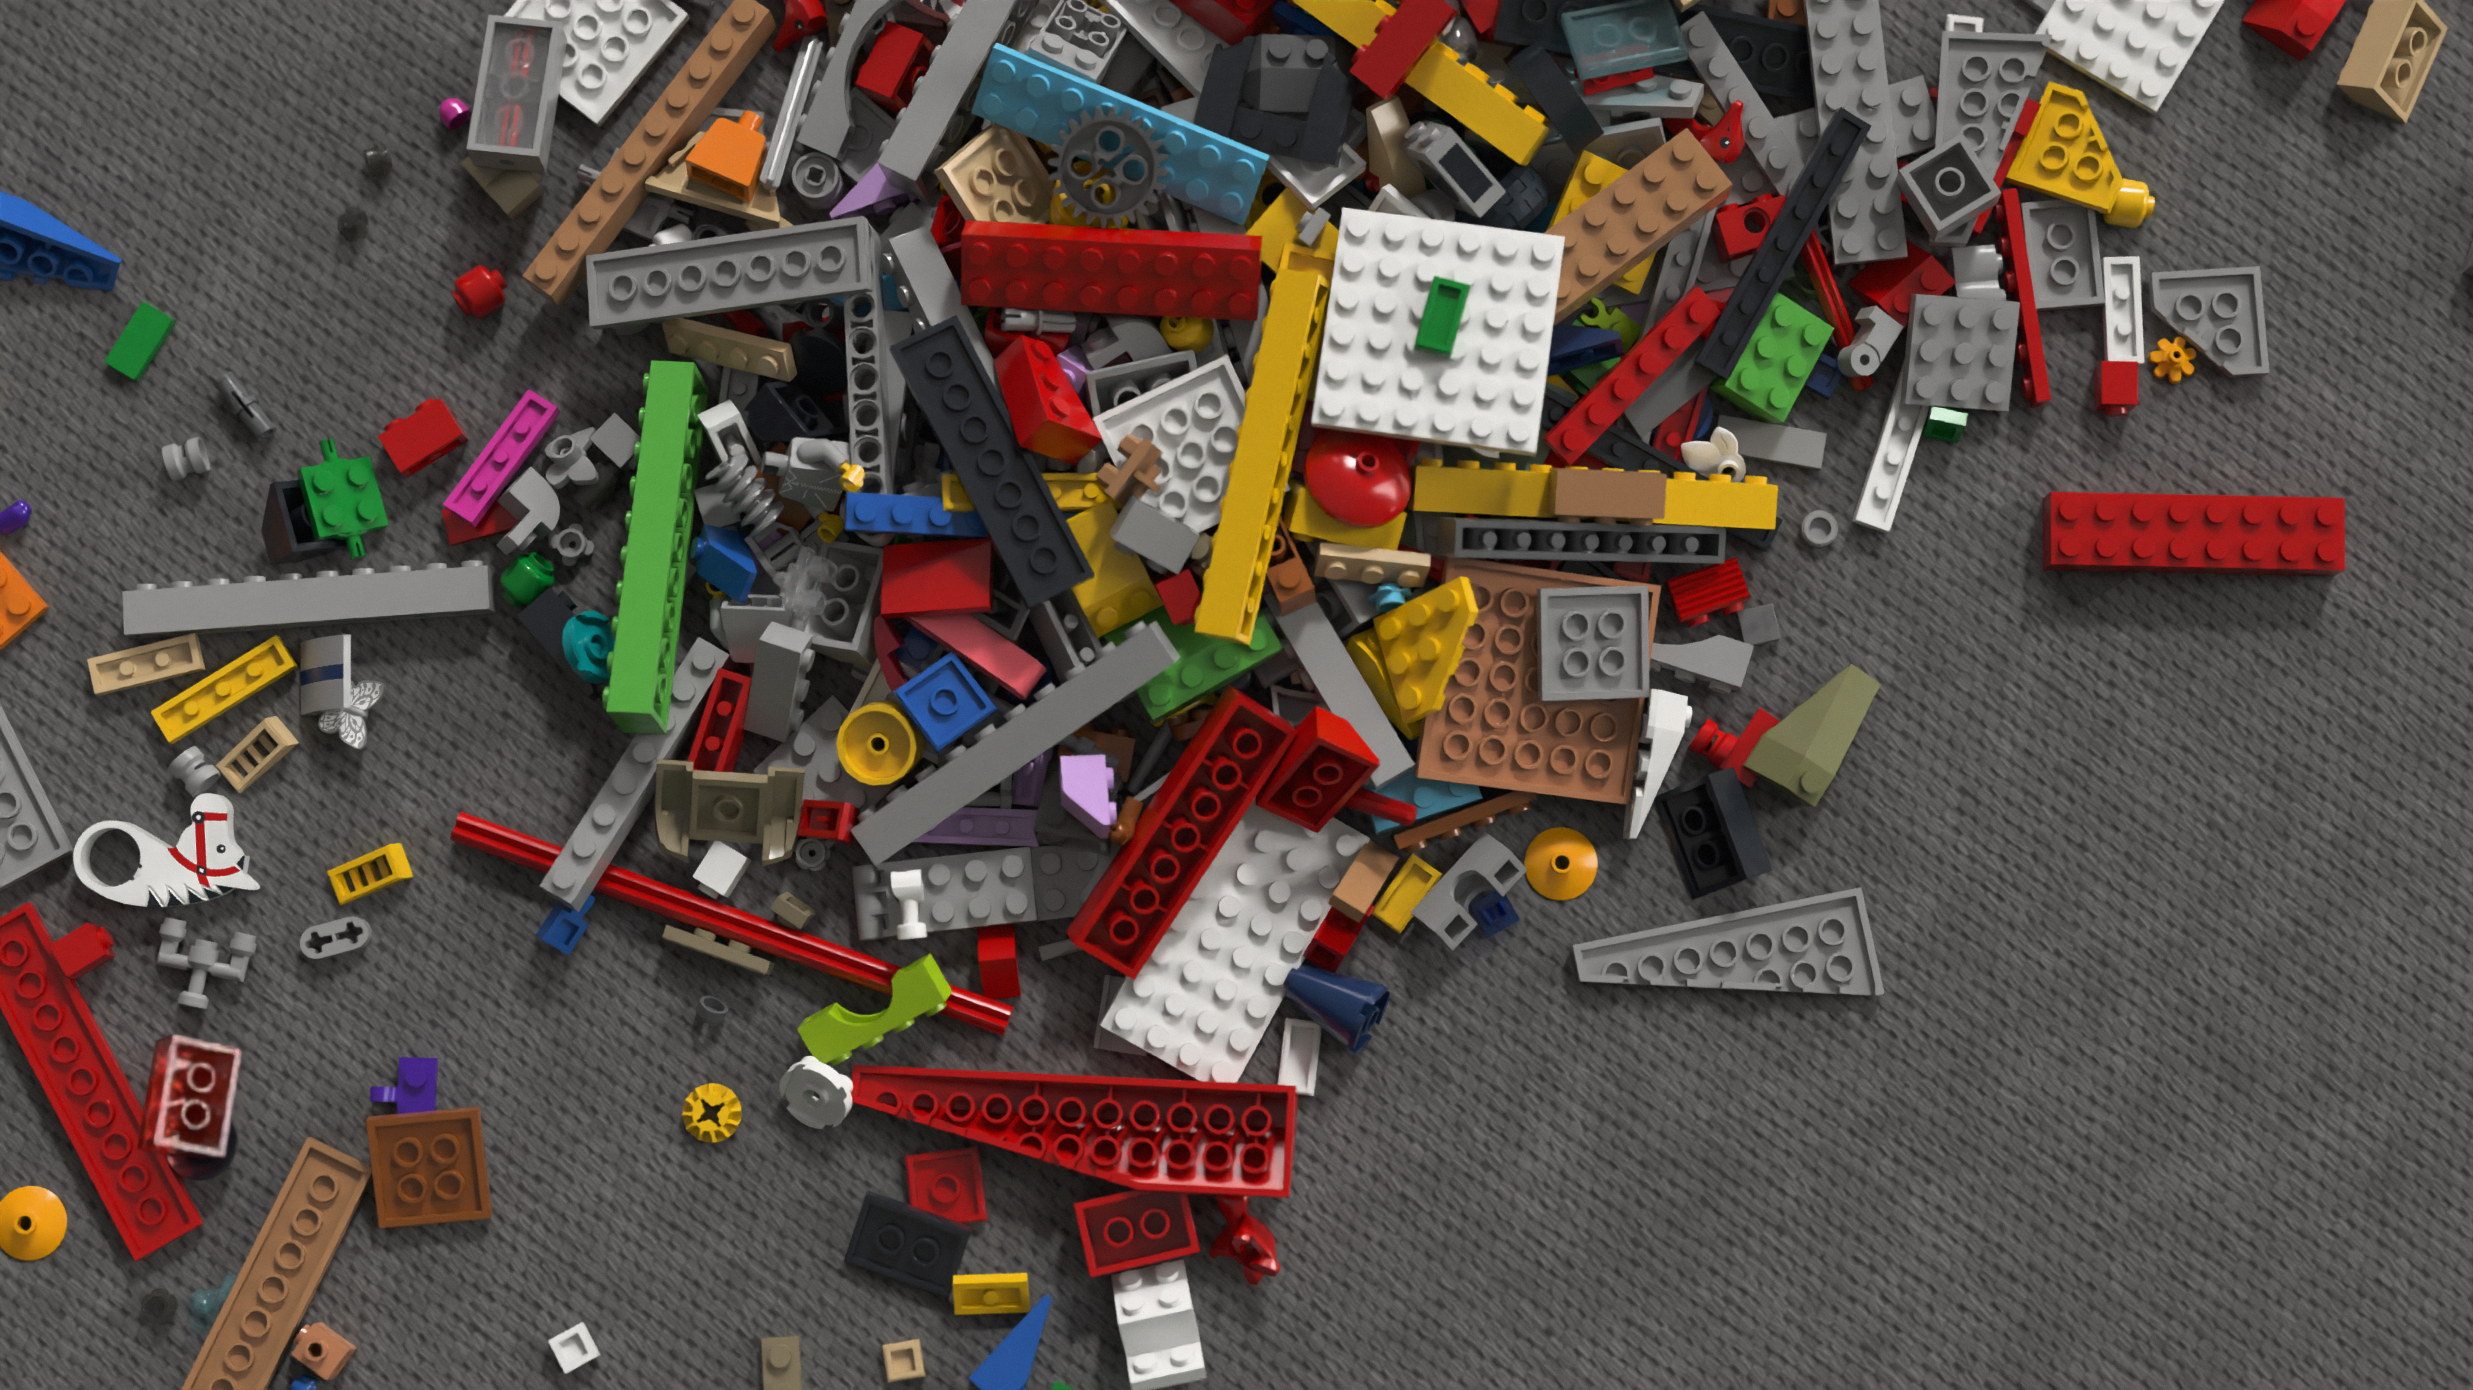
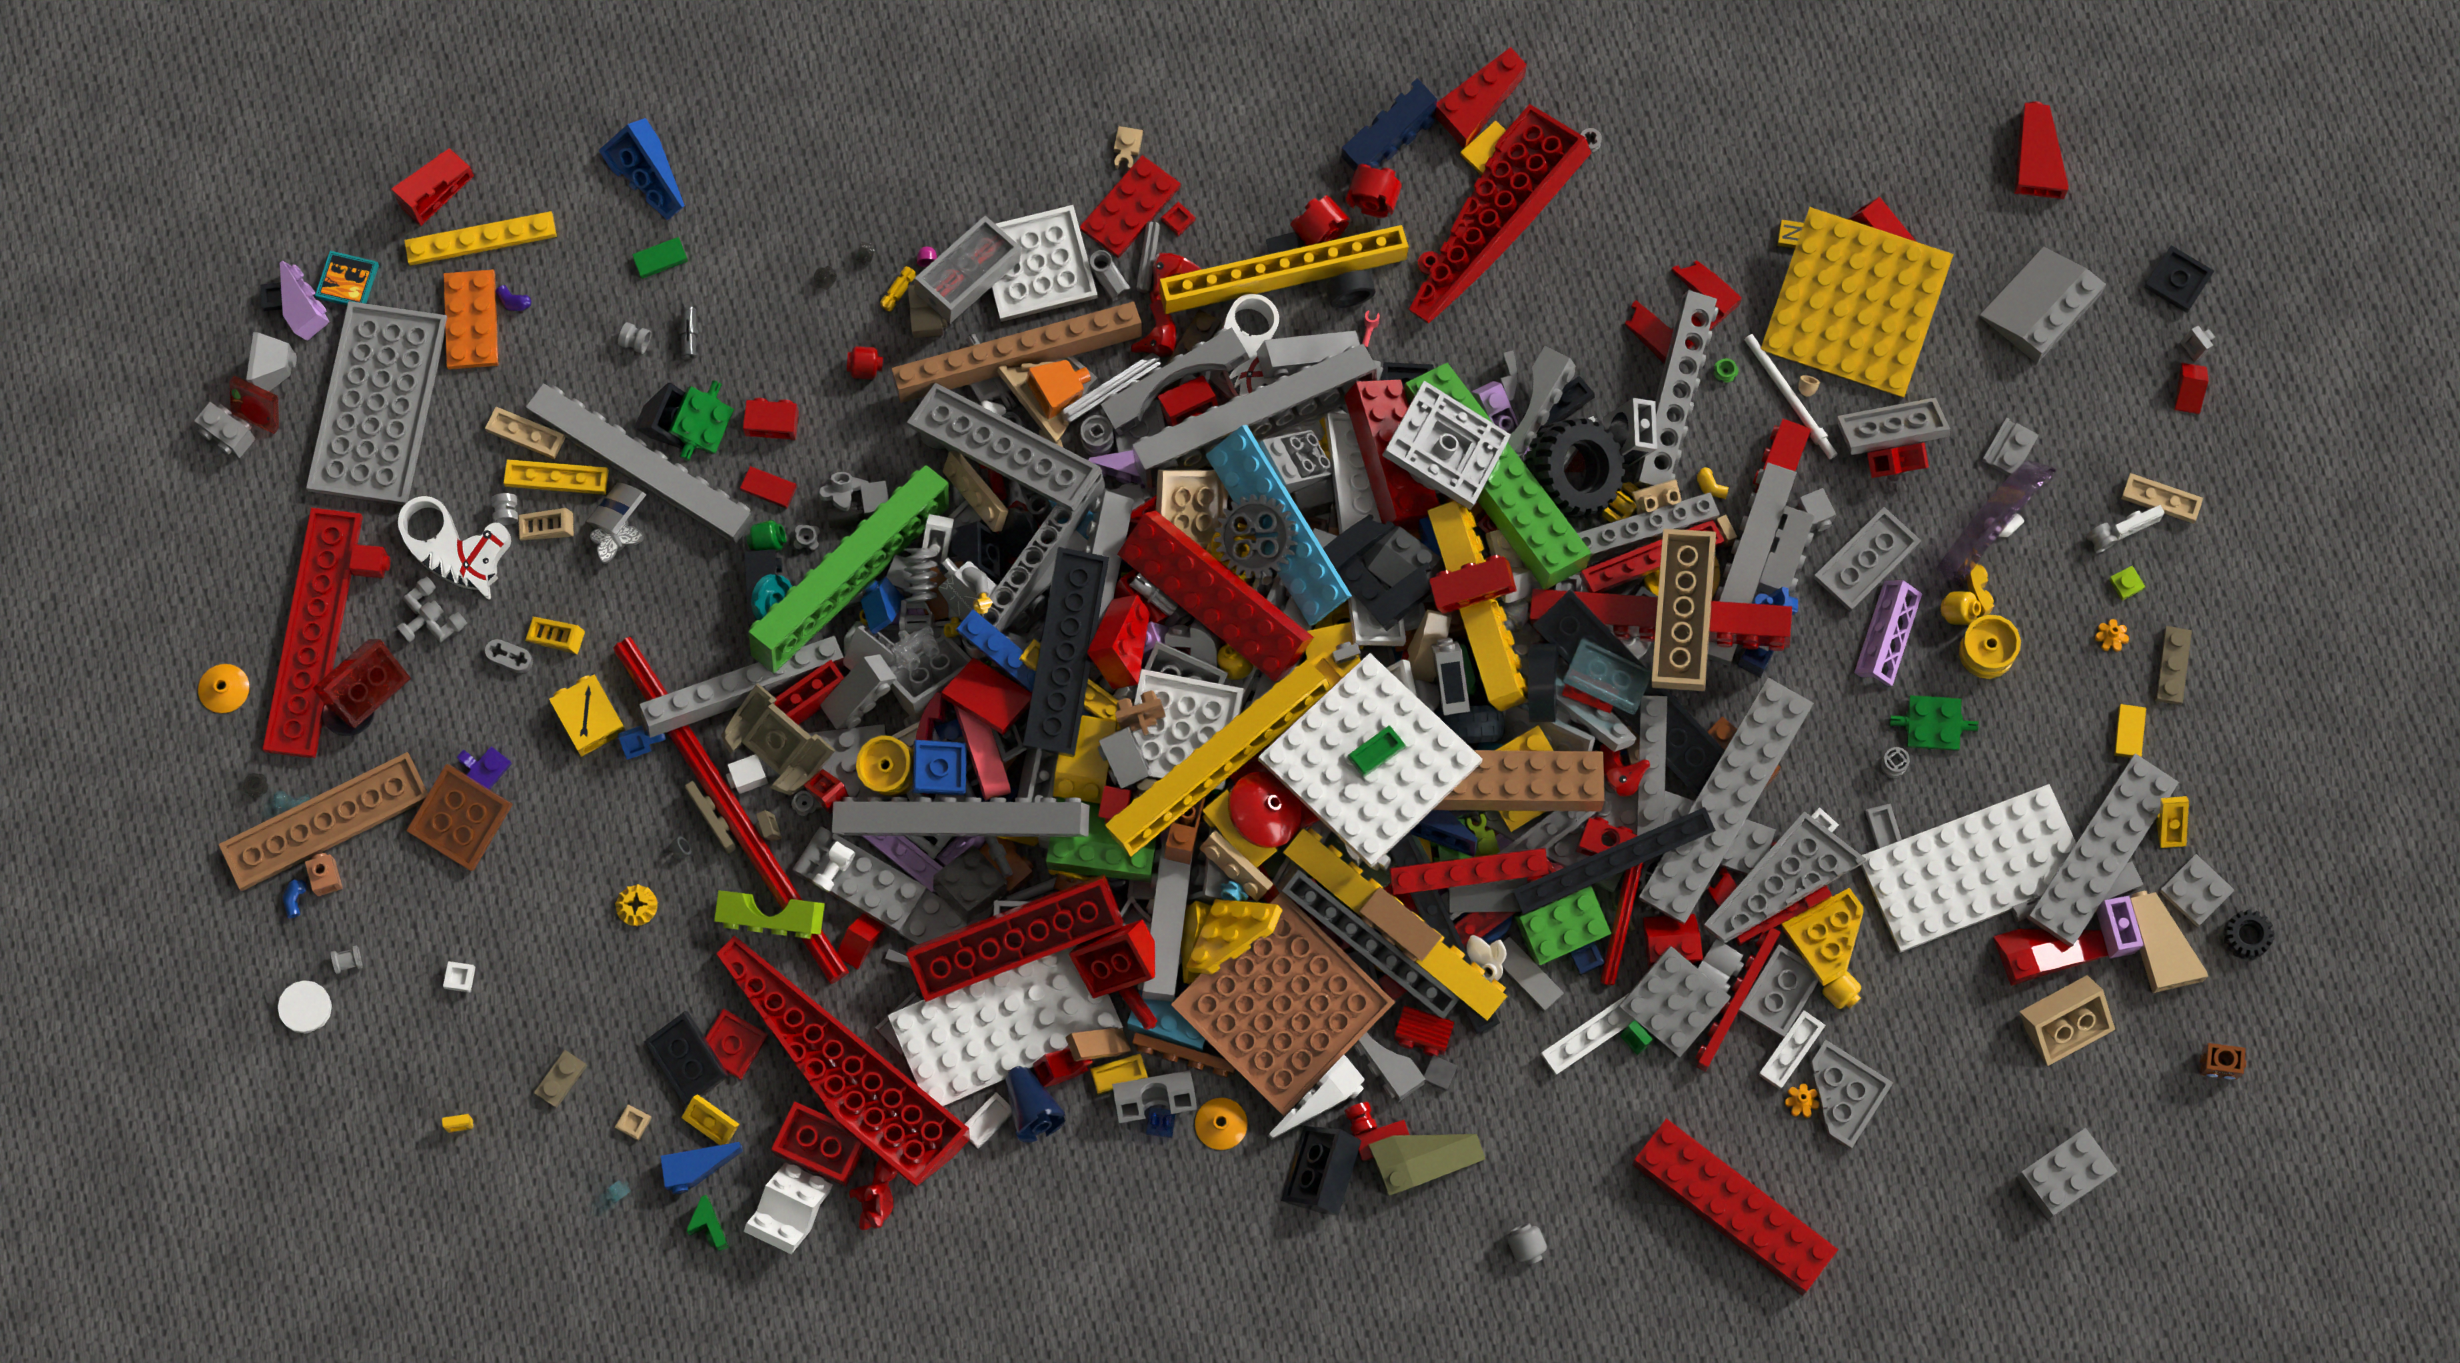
camera: 35 degrees right, 10 degrees down
(449, 175) = (897, 288): none -> yellow axle
(481, 938) = (587, 714): none -> yellow brick
(501, 458) = (804, 461): dark pink plate -> none
(535, 508) = (801, 501): light grey brick -> none
(833, 1088) = (712, 938): white plate -> none
(1085, 789) = (978, 872): lavender slope -> none
(1124, 830) = (983, 912): dark orange arm -> none
(1593, 642) = (1329, 1003): light grey plate -> none
(1782, 947) = (1312, 1266): light grey wing -> none
(1819, 529) = (1517, 1044): light grey tile -> none
(1870, 344) = (1624, 958): light grey leg -> none
(1948, 187) = (1734, 898): light grey brick -> none
(1999, 744) = (1527, 1243): none -> light grey head
(2116, 387) = (1754, 1090): red brick -> none

